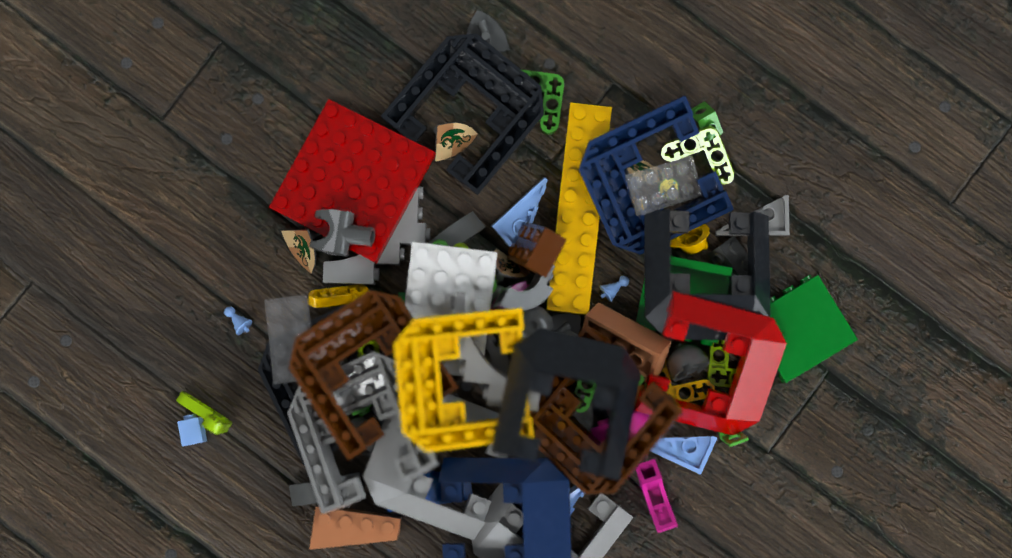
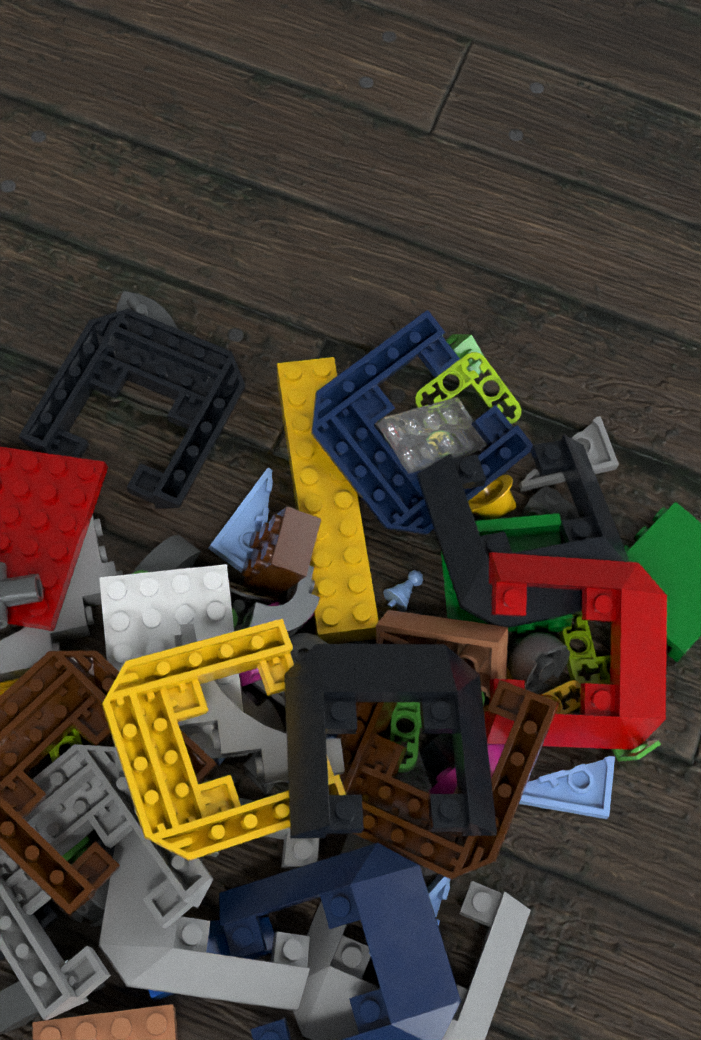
camera: 25 degrees left, 20 degrees down
(452, 139) = (125, 447): shield -> none
(545, 79) = (239, 350): bright green beam -> none
(655, 496) = (551, 864): dark pink arch -> none

